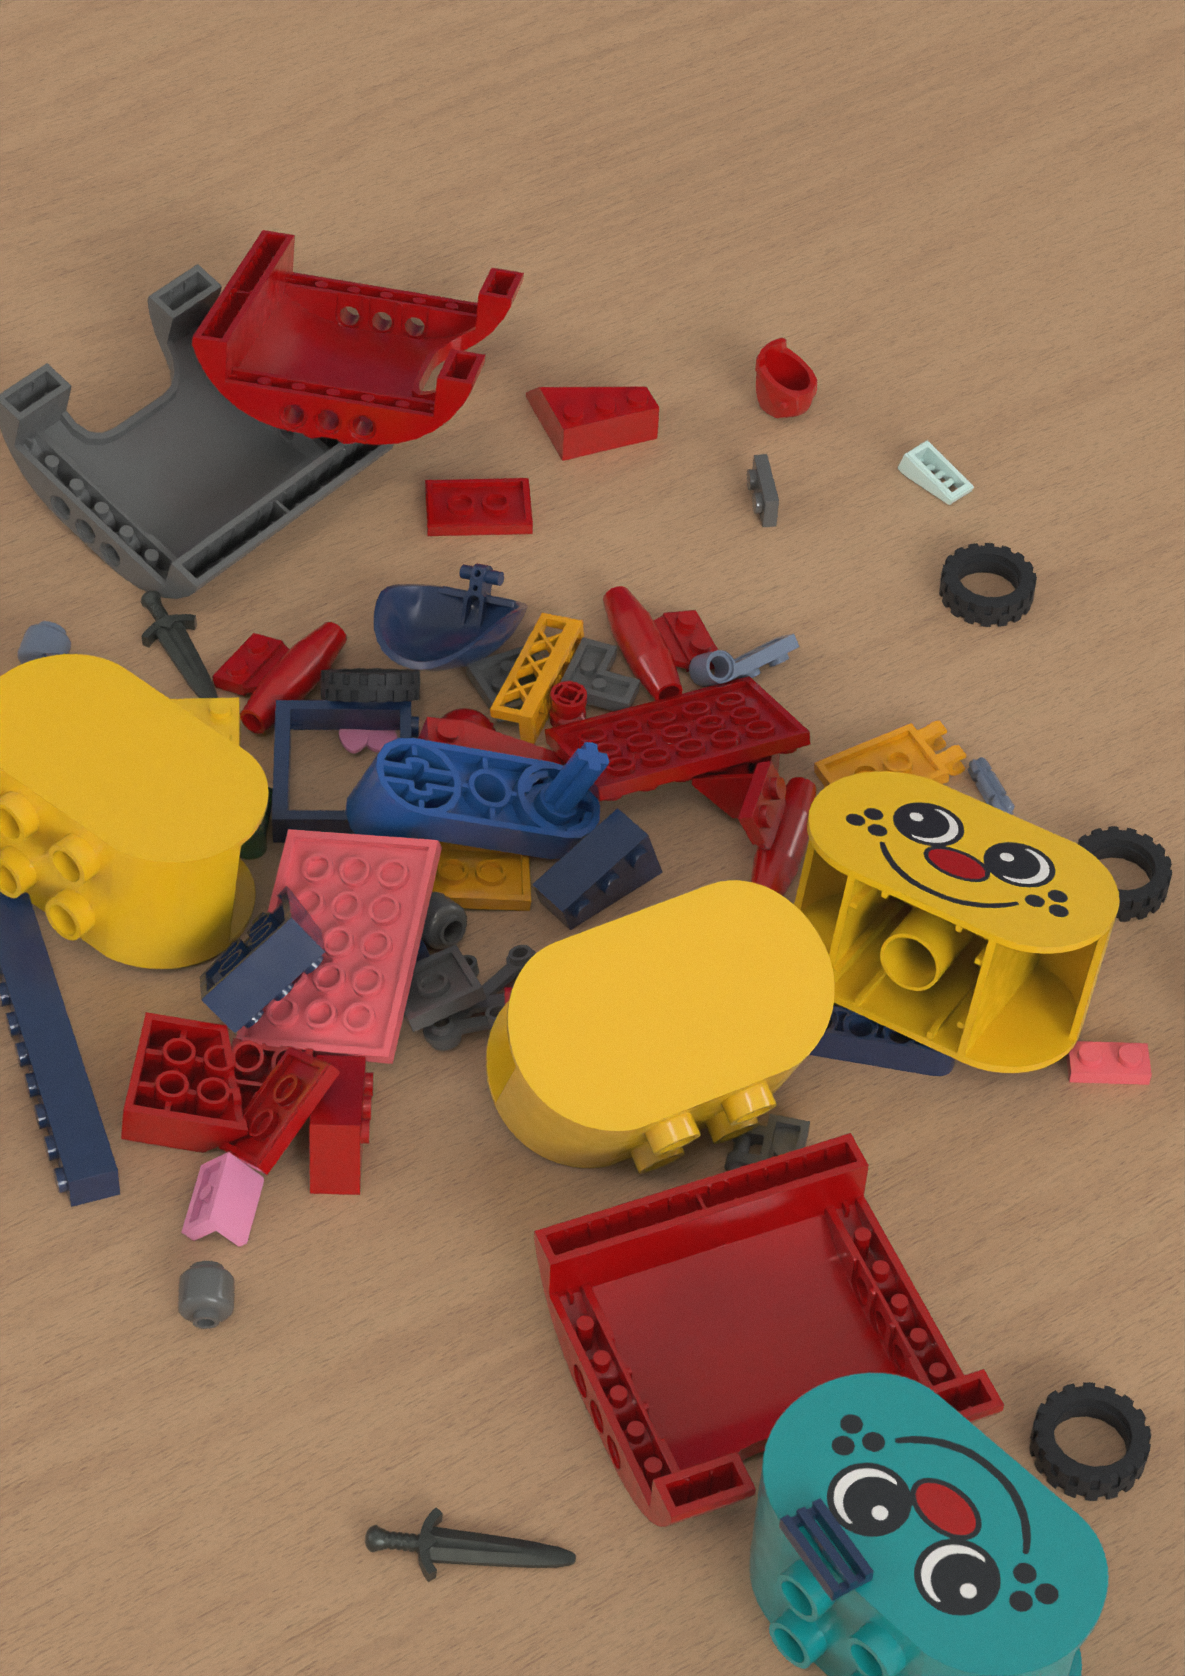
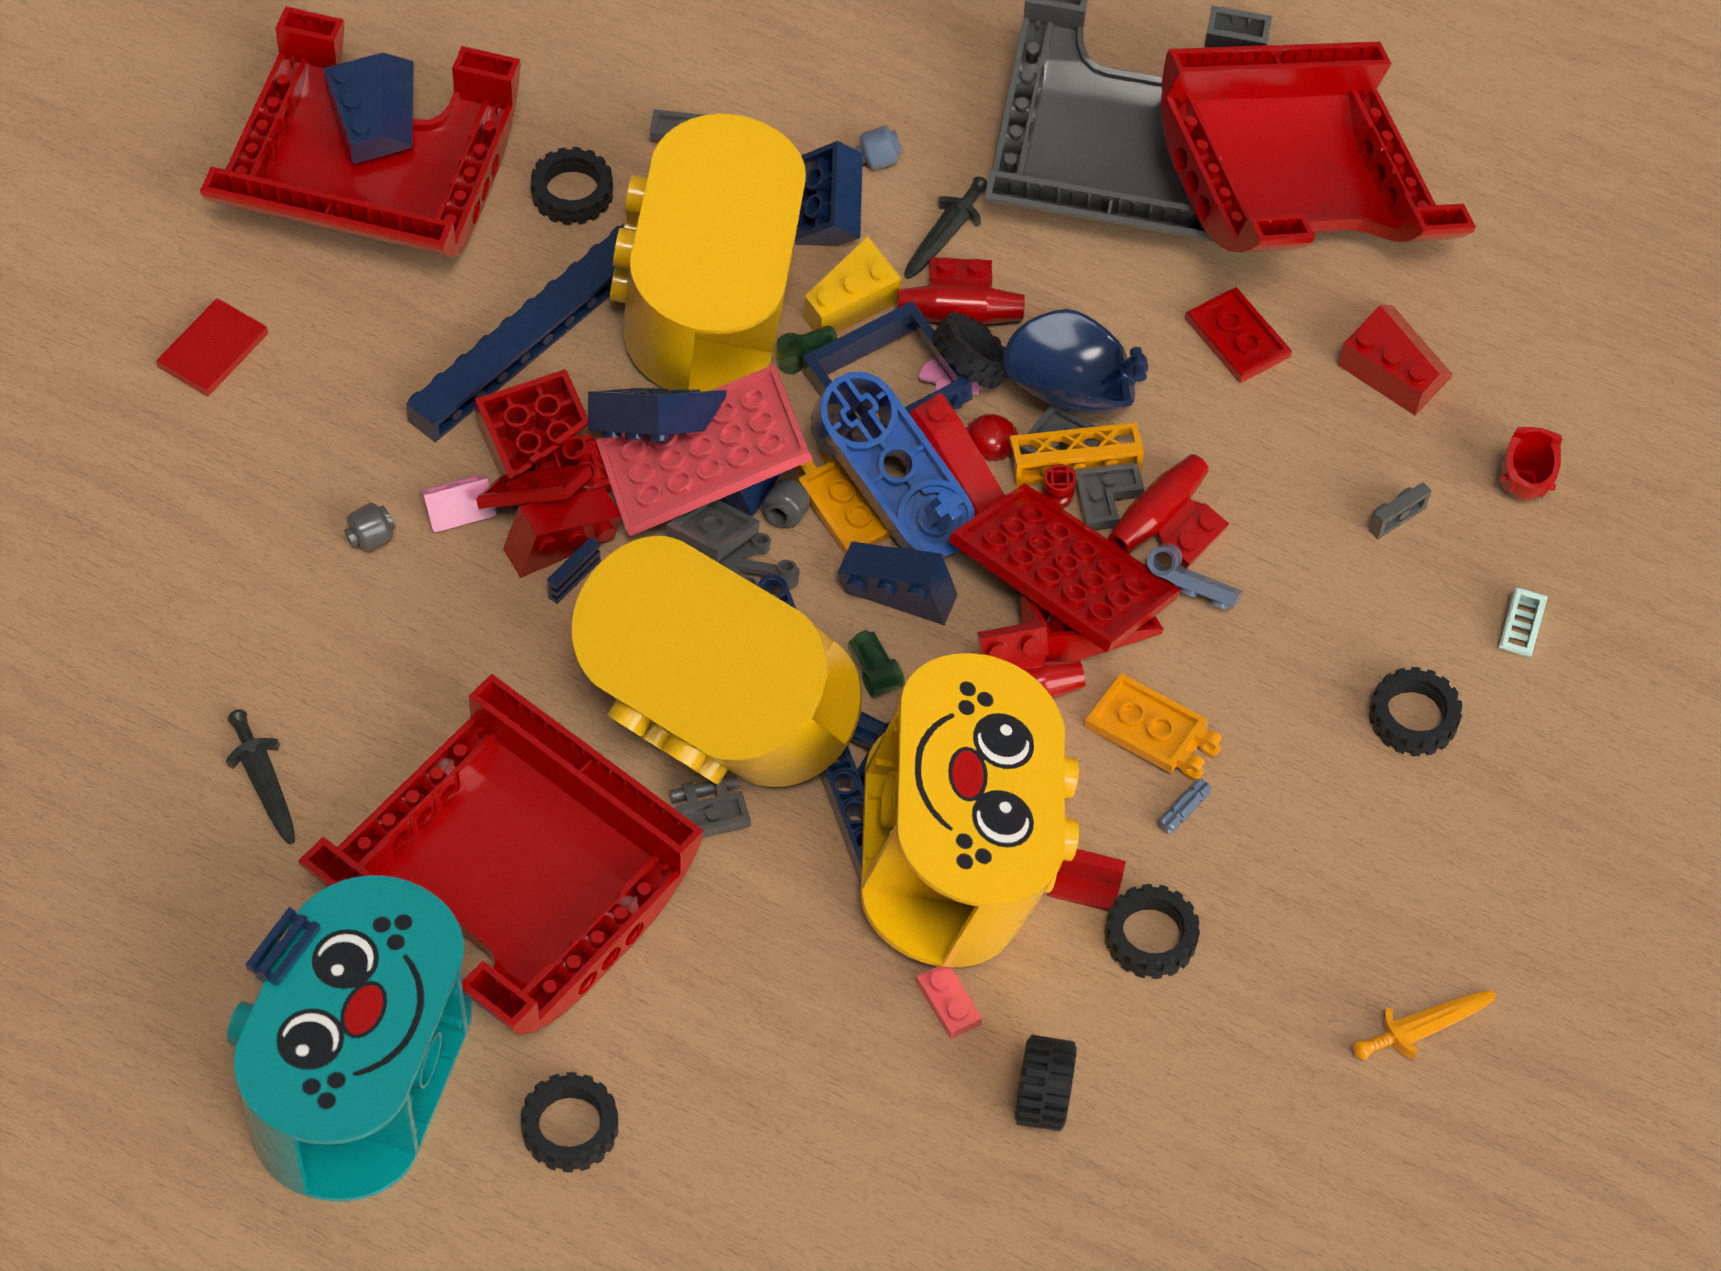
camera: 60 degrees right, 10 degrees up
(395, 1135) = (573, 570): none -> dark blue tile

